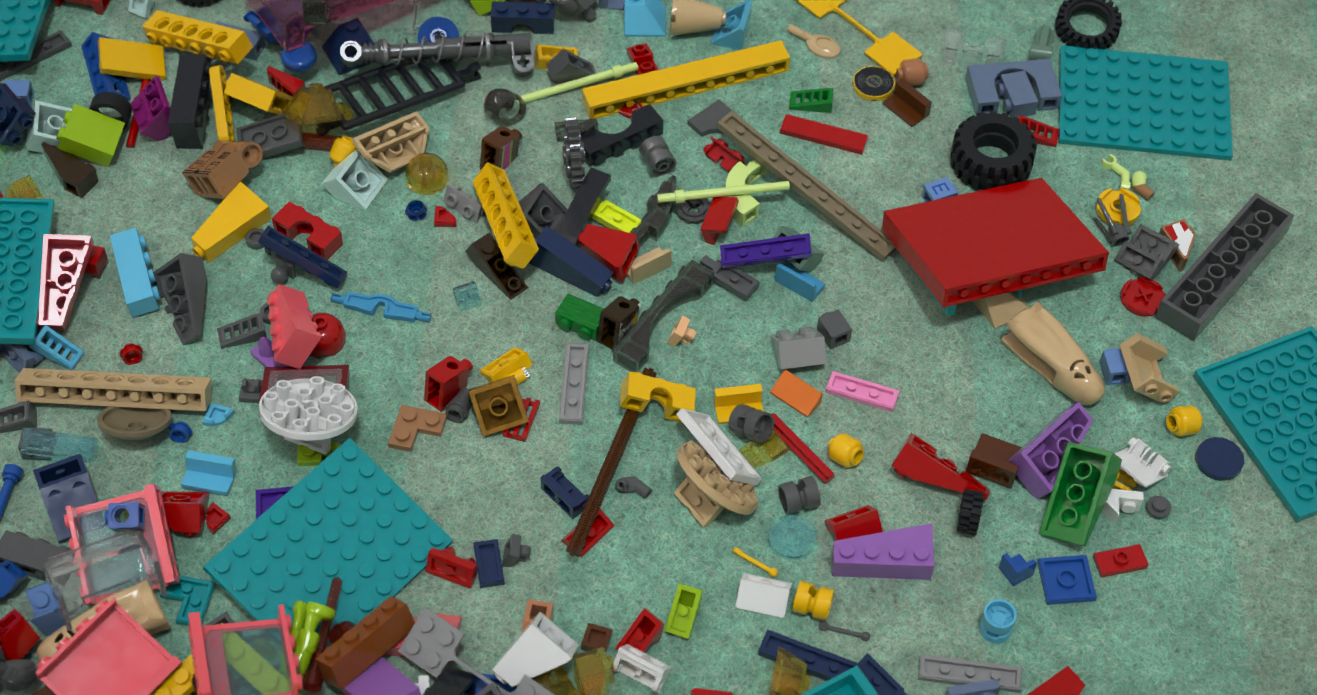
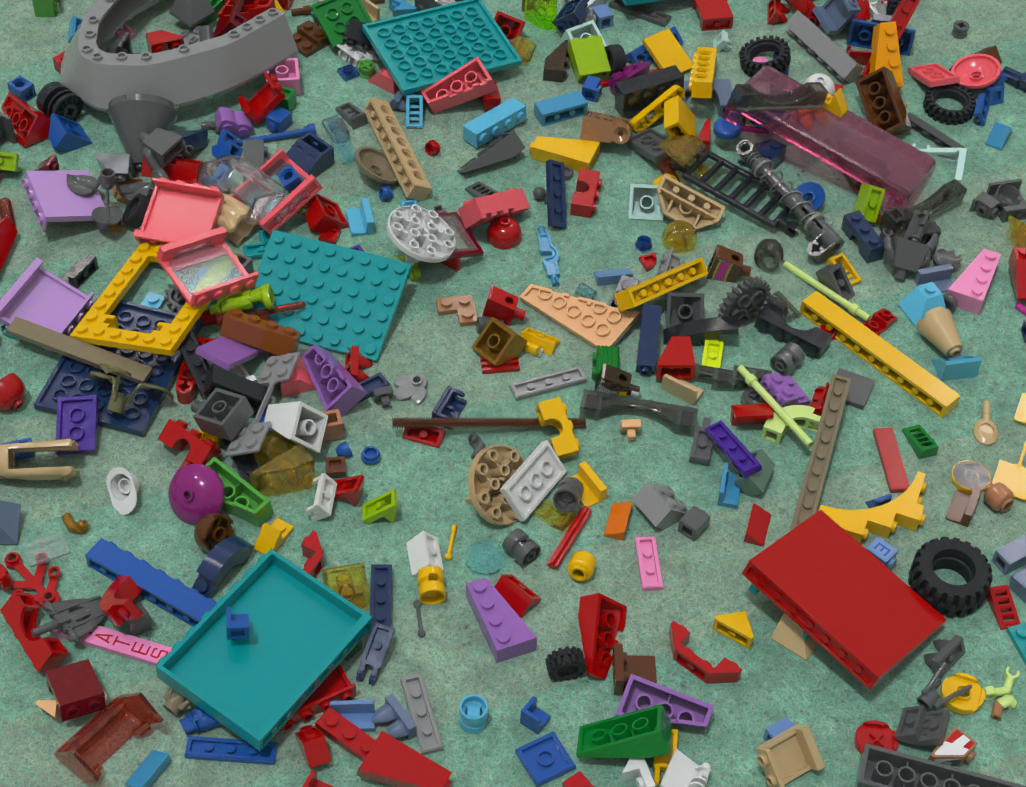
camera: 65 degrees right, 5 degrees down
(137, 155) = (592, 88): none -> blue brick
(149, 198) = (560, 108): none -> dark azure brick
(448, 258) = (611, 276): none -> medium blue slope
(471, 593) = (332, 381): none -> medium lavender wedge
(504, 307) = (582, 316): none -> light nougat wing
(515, 521) = (409, 389): none -> light grey plate
(575, 621) = (344, 450): none -> blue hinge
(595, 597) = (370, 455): none -> blue plate
(699, 176) = (784, 390): none -> medium lavender plate
(856, 279) = (757, 526): none -> red slope
(872, 166) = (879, 501): none -> blue slope
(900, 174) = (881, 520): none -> yellow arch
(973, 404) = (724, 672): none -> red slope
(979, 348) = (735, 627): none -> yellow slope
(1054, 354) = (762, 680): tan piece -> none
(1068, 192) = (949, 652): none -> dark grey tile

